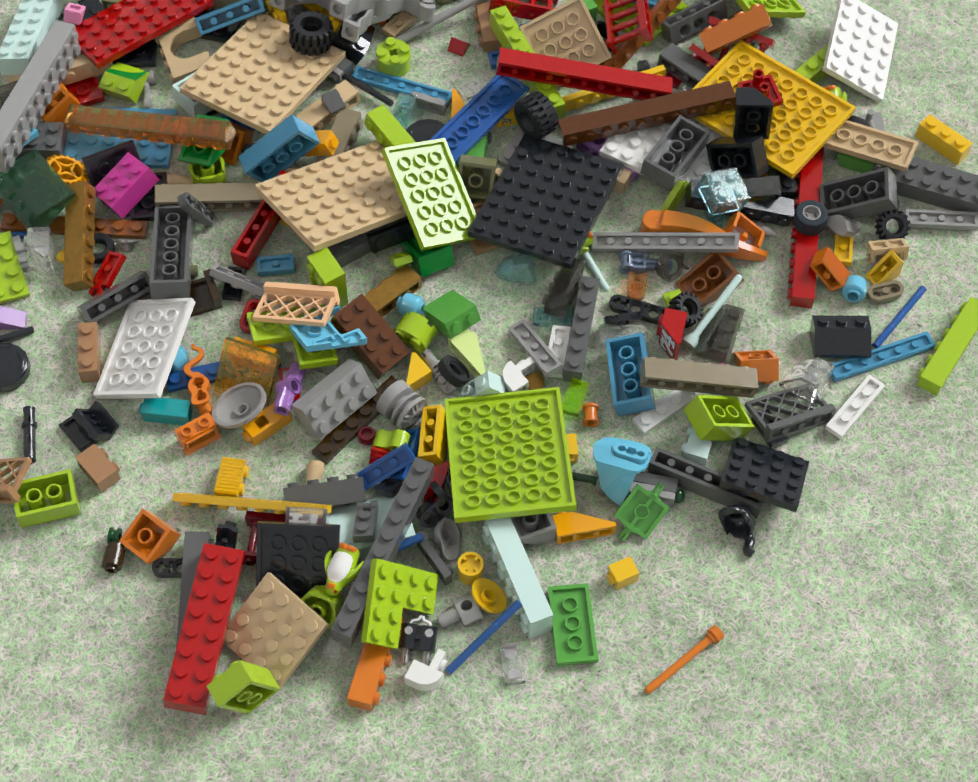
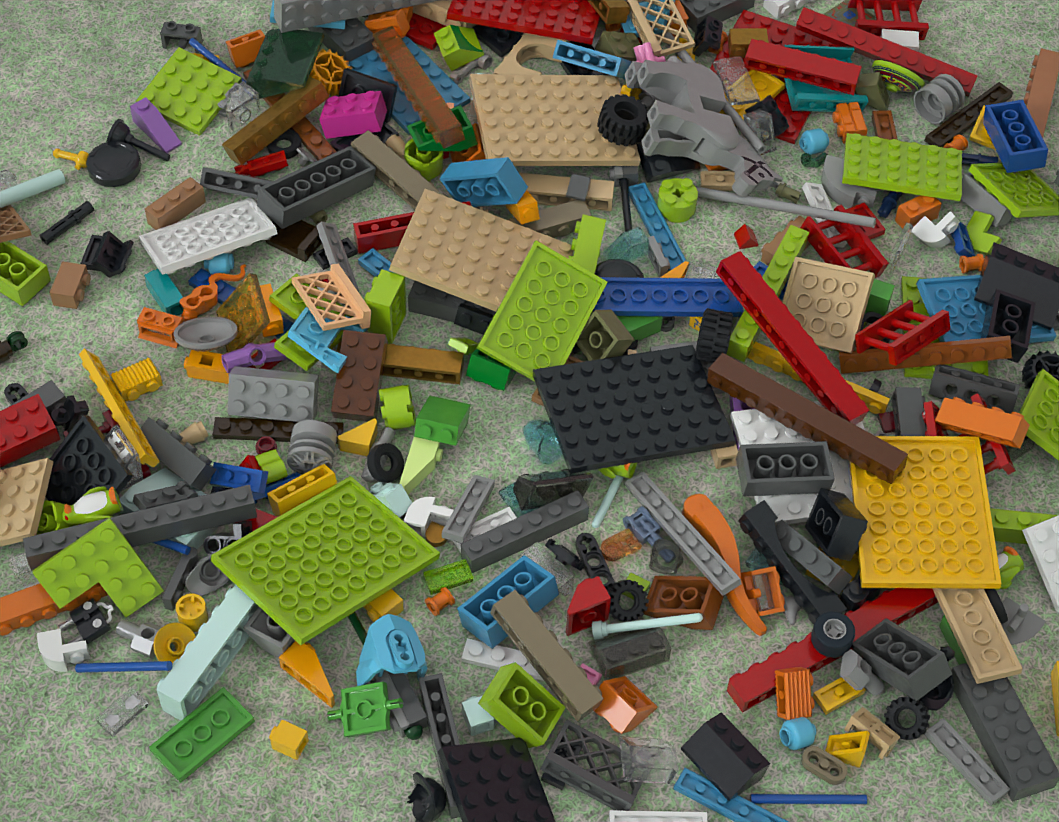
camera: 50 degrees right, 5 degrees down
(149, 536) = (33, 362): orange slope -> none
(196, 209) = (380, 179): dark grey beam -> none
(410, 303) = (425, 385): medium azure head -> none
(674, 196) = (739, 506): lime tile -> none
(723, 191) = (774, 534): clear light blue brick -> none
(752, 113) = (877, 492): black slope -> none
(765, 85) = (926, 490): red plate -> none

